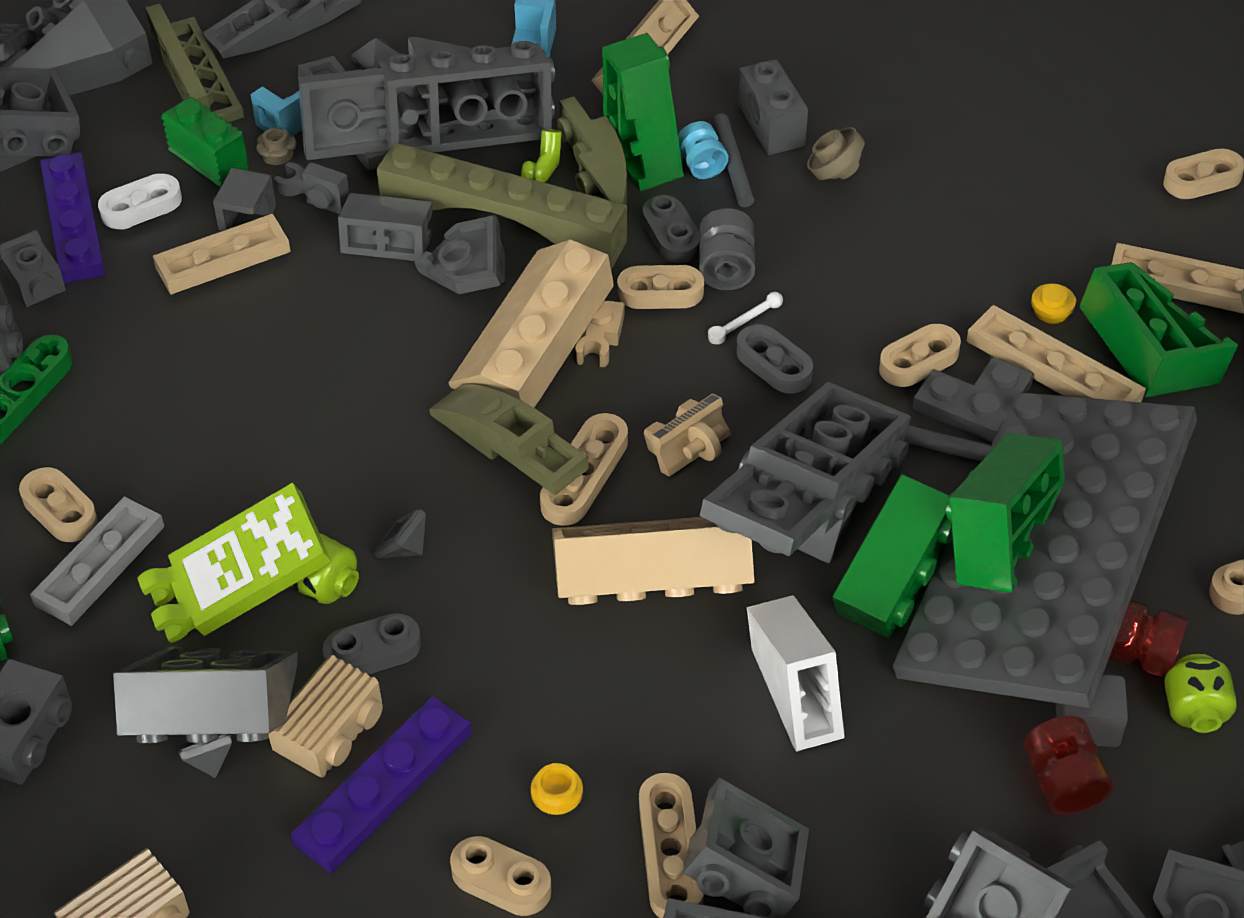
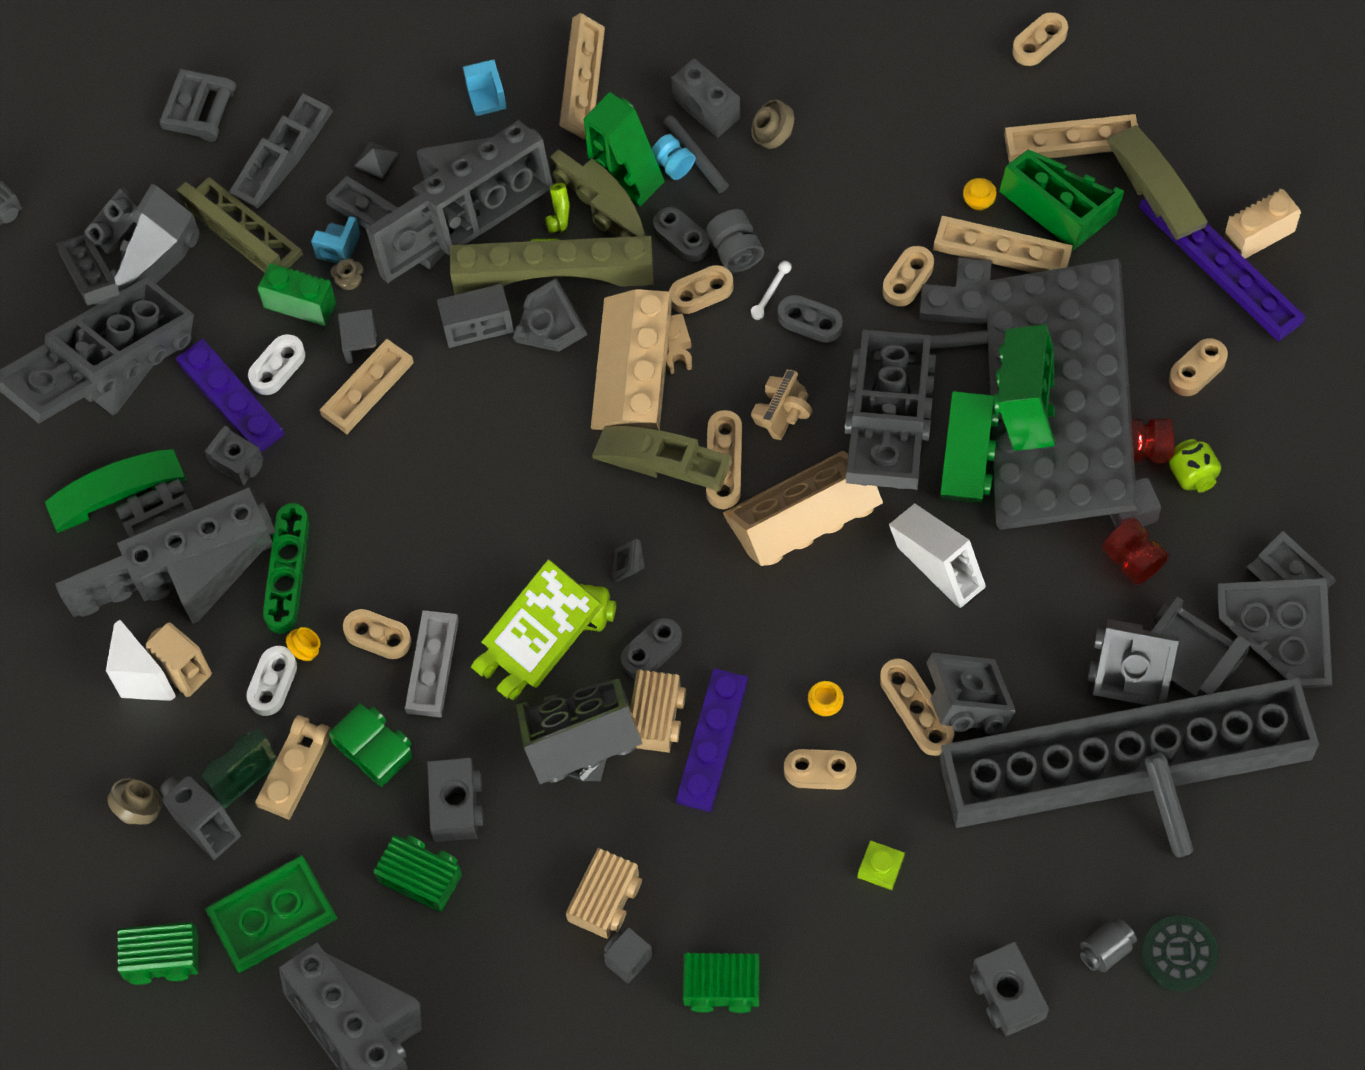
camera: 20 degrees left, 15 degrees up
(321, 185) = (405, 299): dark grey plate -> none

